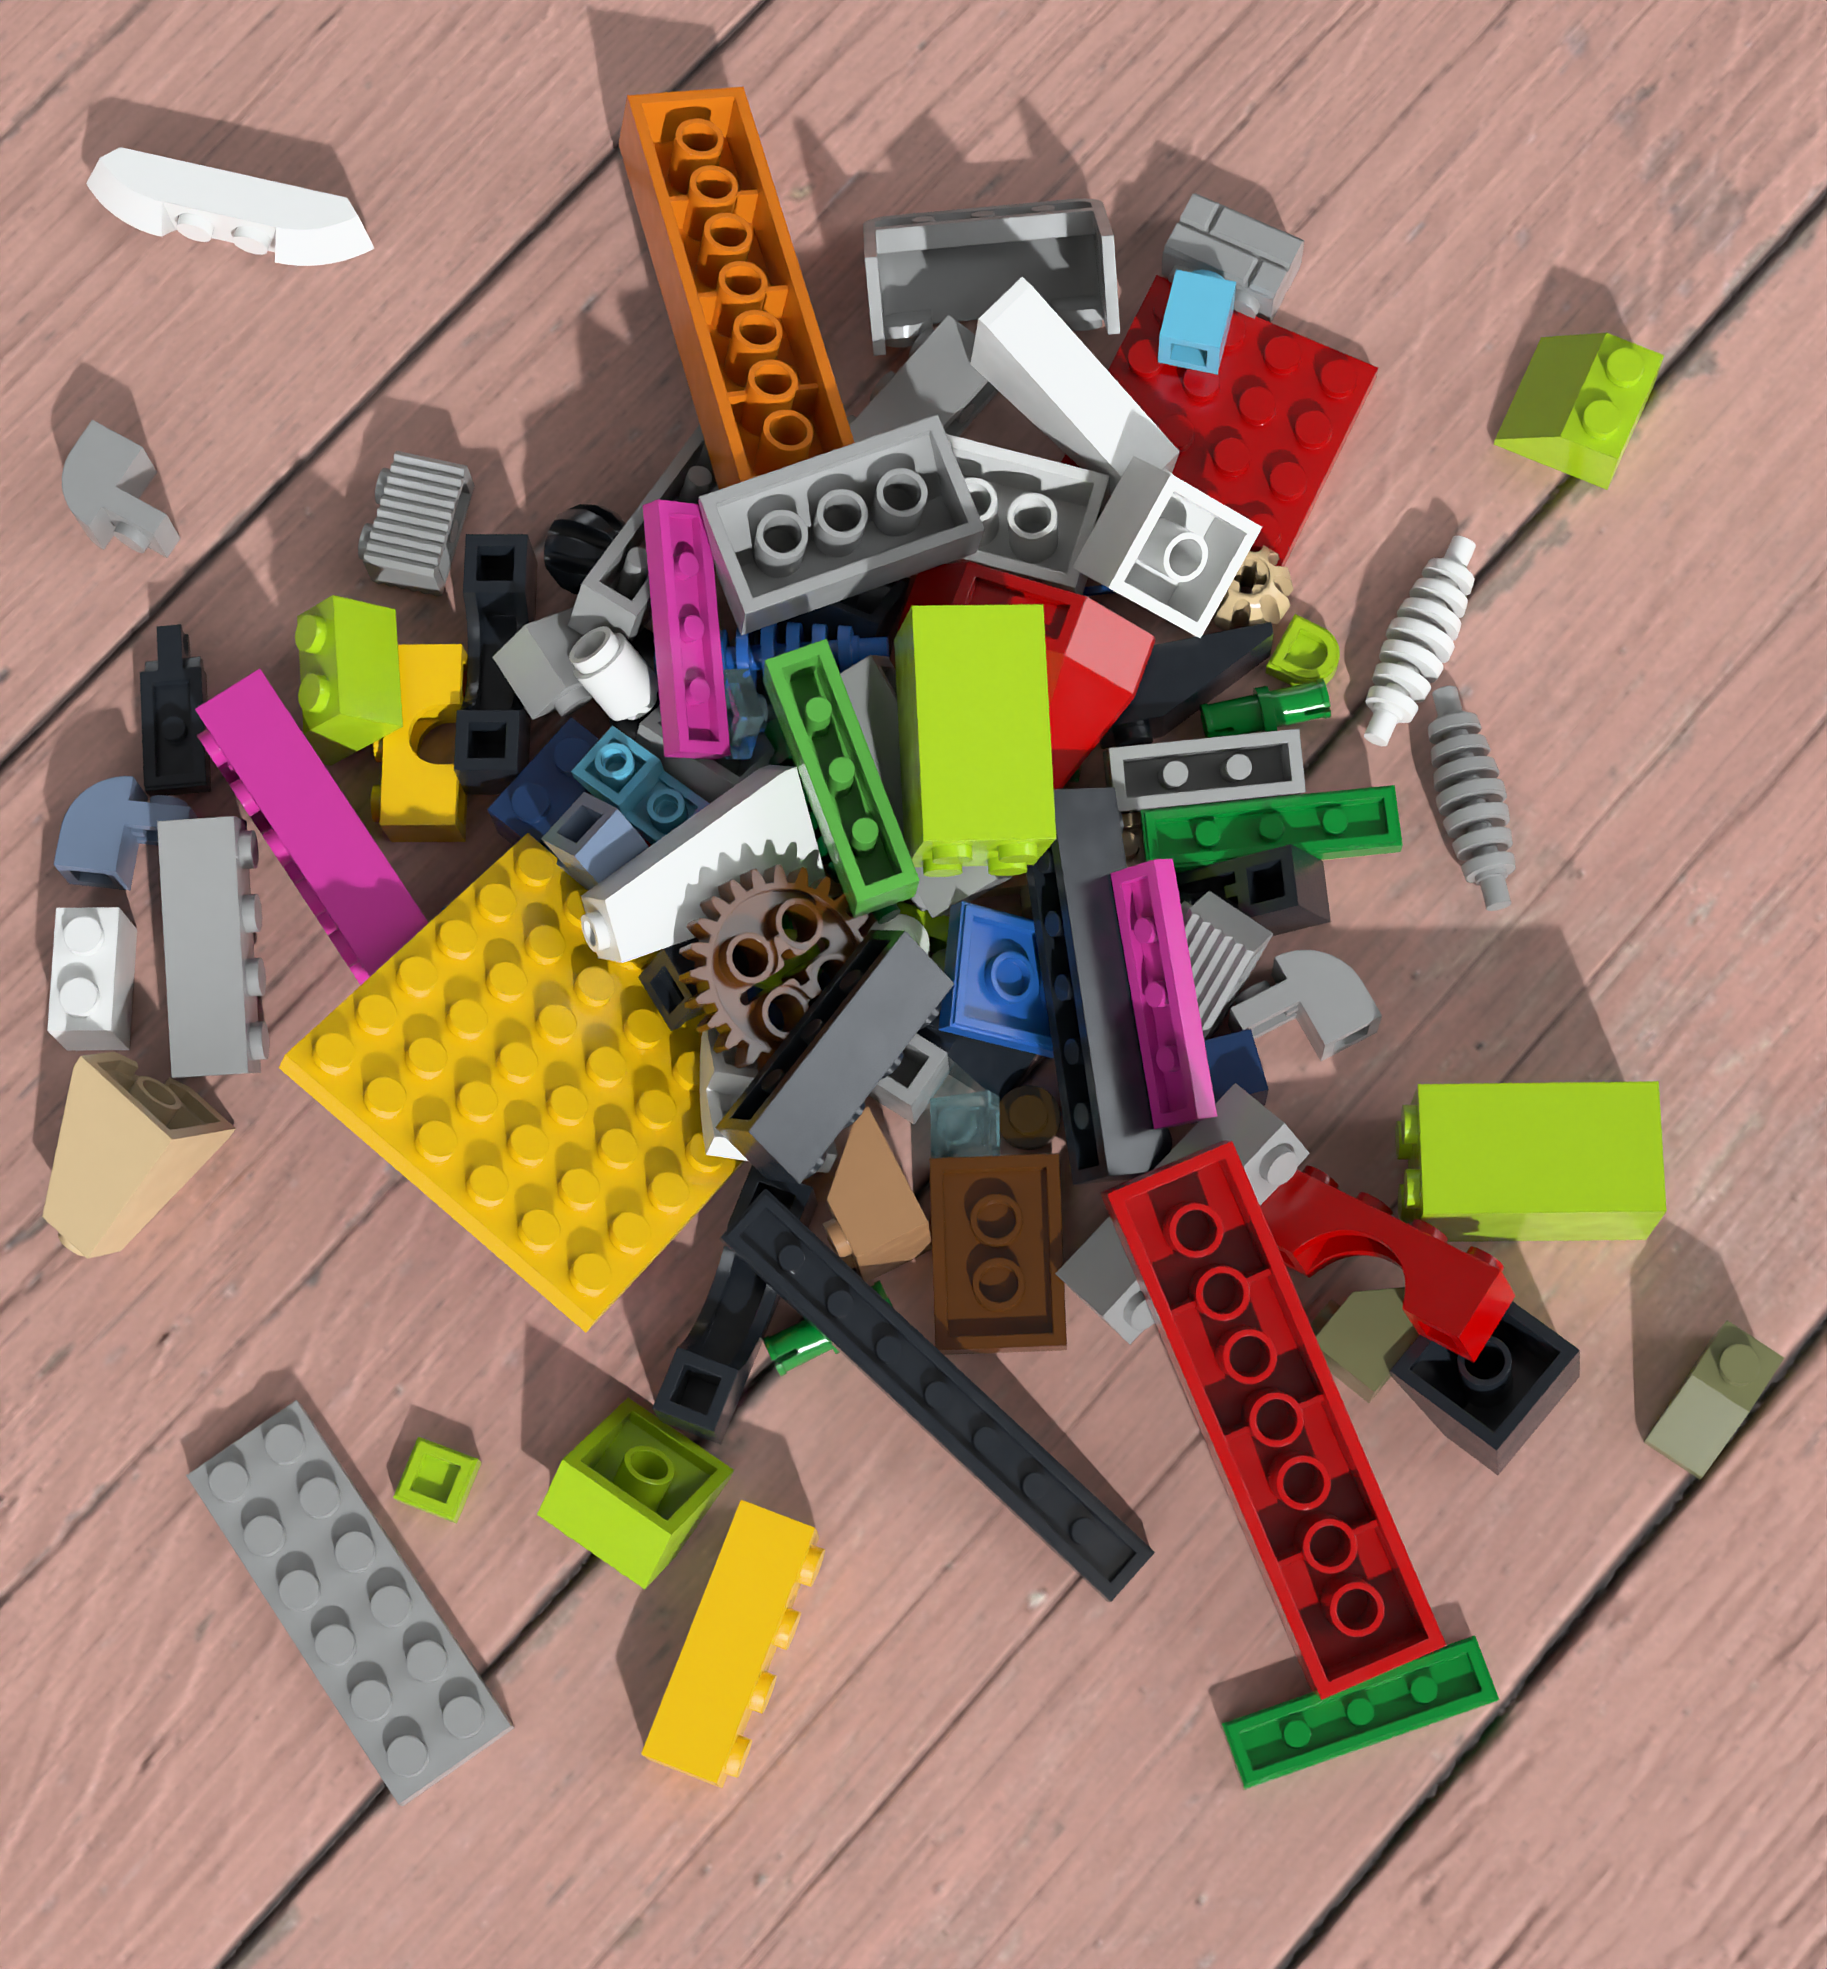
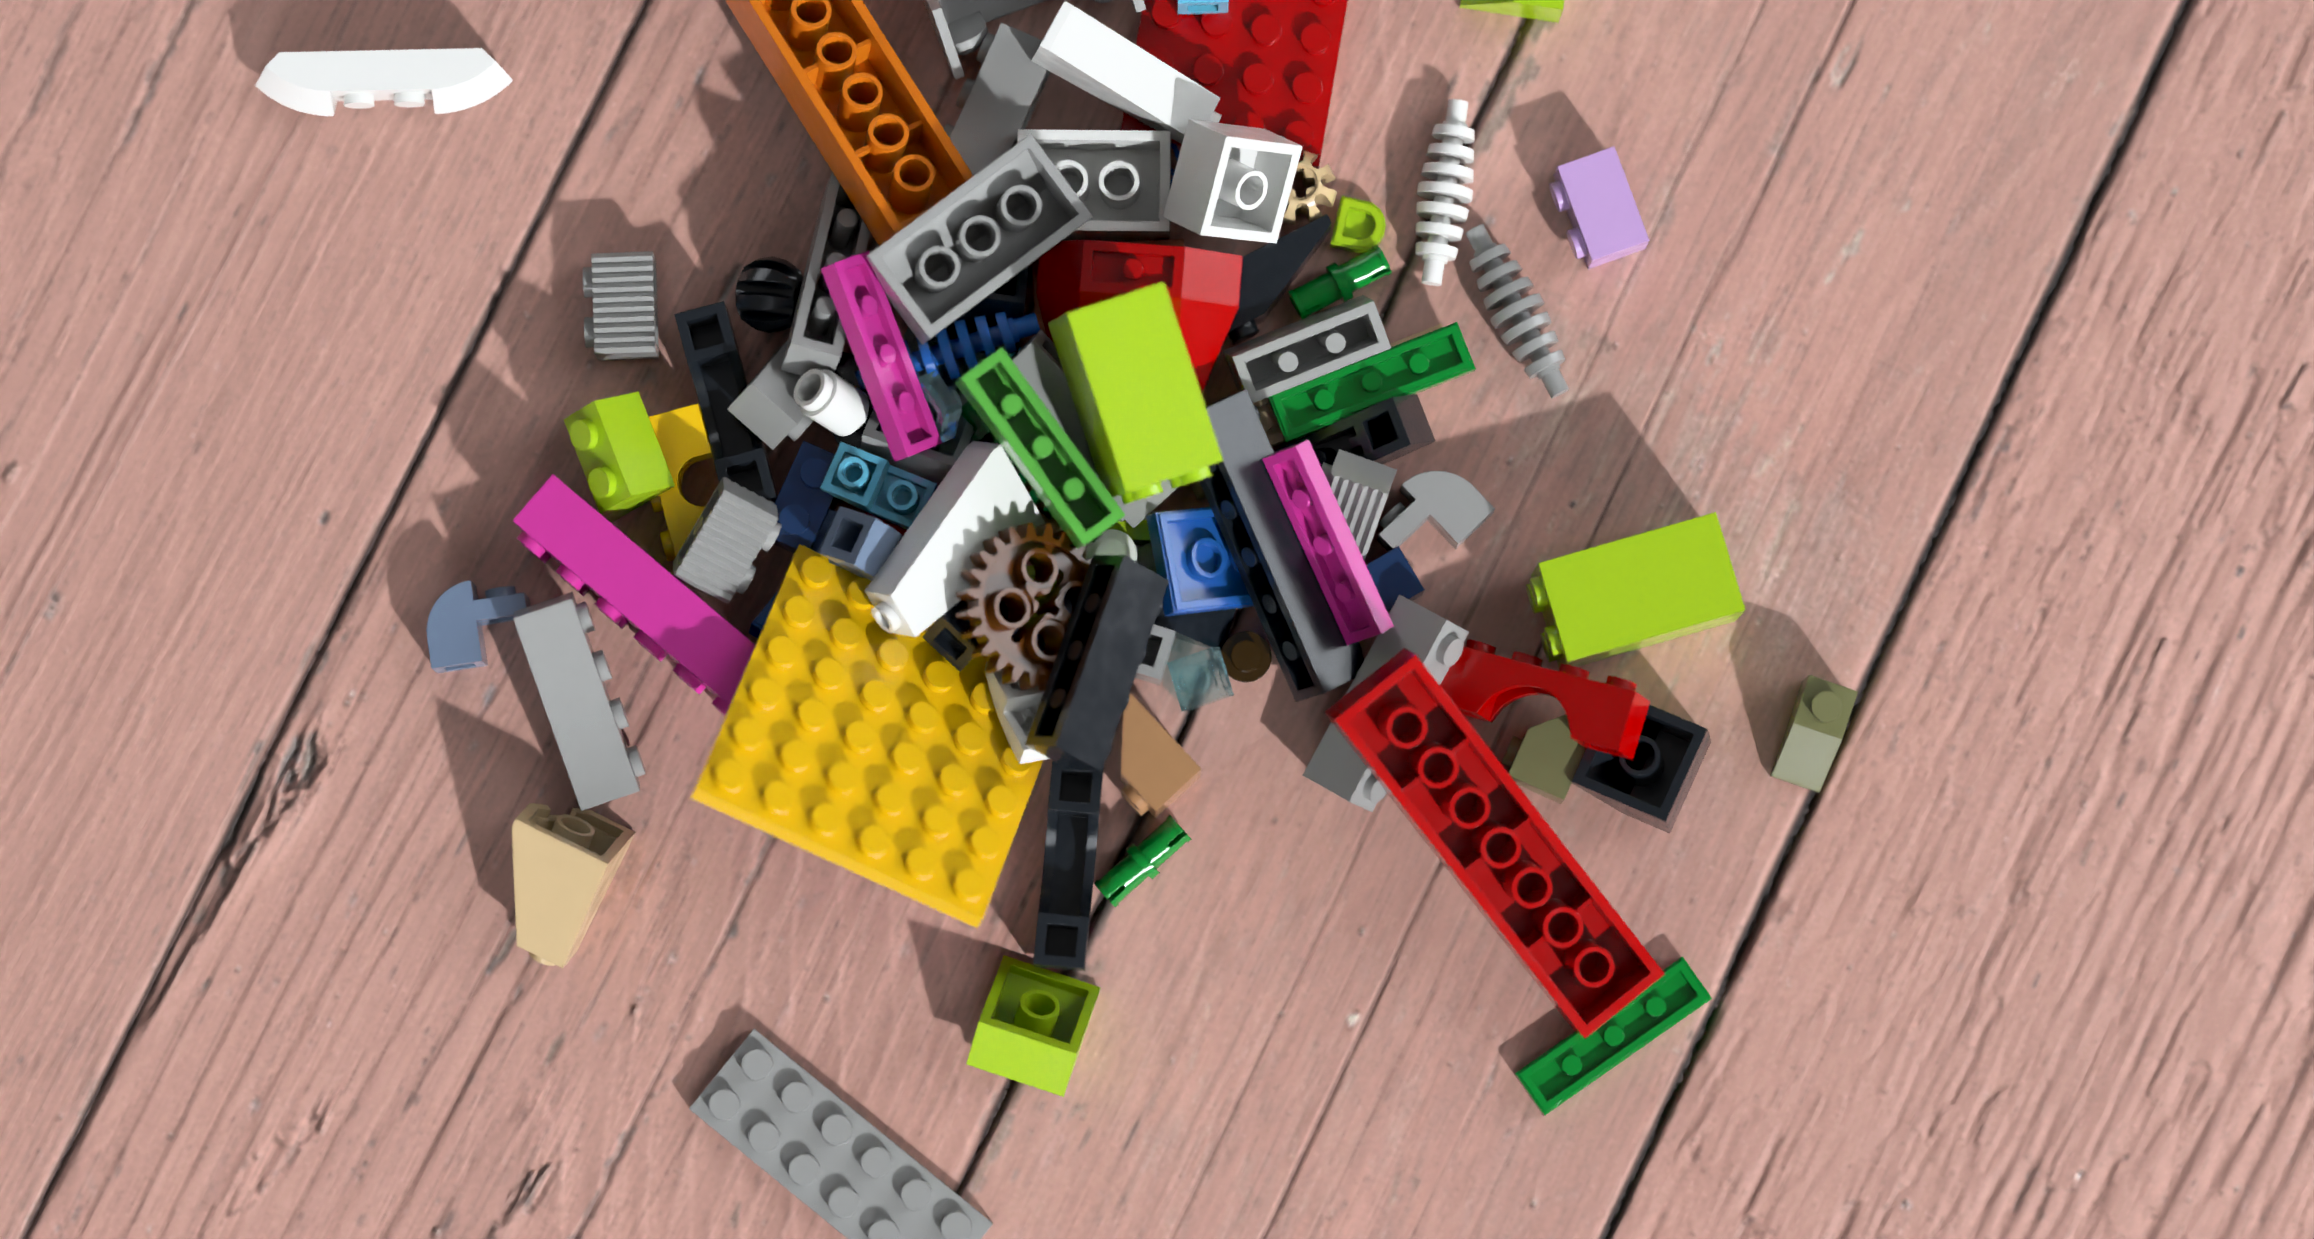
camera: 25 degrees left, 10 degrees up
(92, 979) = (489, 748): white brick -> none
(104, 488) = (357, 341): light grey brick -> none
(170, 725) = (481, 519): black hinge -> none
(437, 1479) = (878, 1057): lime tile -> none
(440, 802) = (727, 540): none -> light grey brick
(732, 1644) = (1139, 1117): yellow brick -> none
(937, 1395) = (1238, 891): black tile -> none
(997, 1254) = (1252, 769): reddish brown plate -> none
(1603, 704) = (1599, 208): none -> lavender brick

